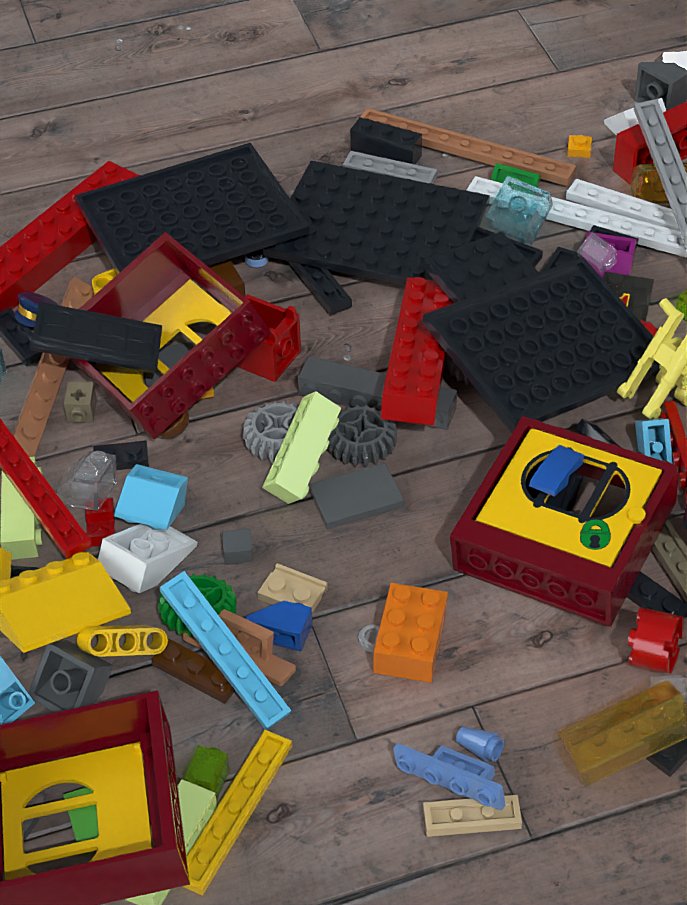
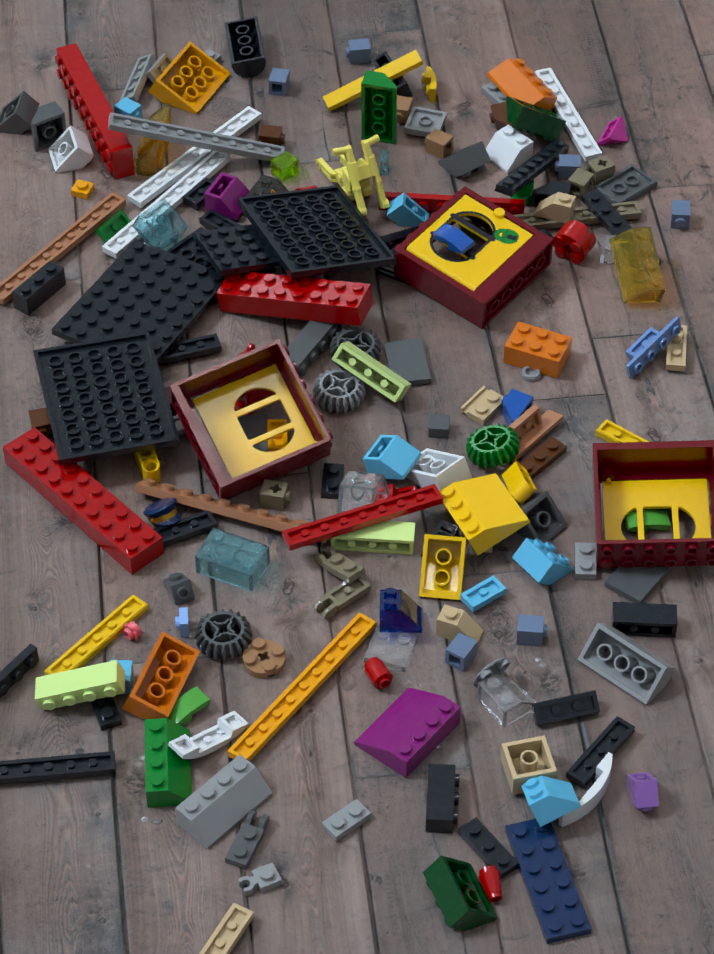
camera: 80 degrees left, 0 degrees up
(96, 337) = (242, 455): black piece -> none
(225, 651) = (542, 429): medium azure plate -> none
(390, 167) = (70, 293): light grey plate -> none
(482, 743) = (626, 334): medium blue cone -> none
(598, 253) = (232, 190): clear brick -> none

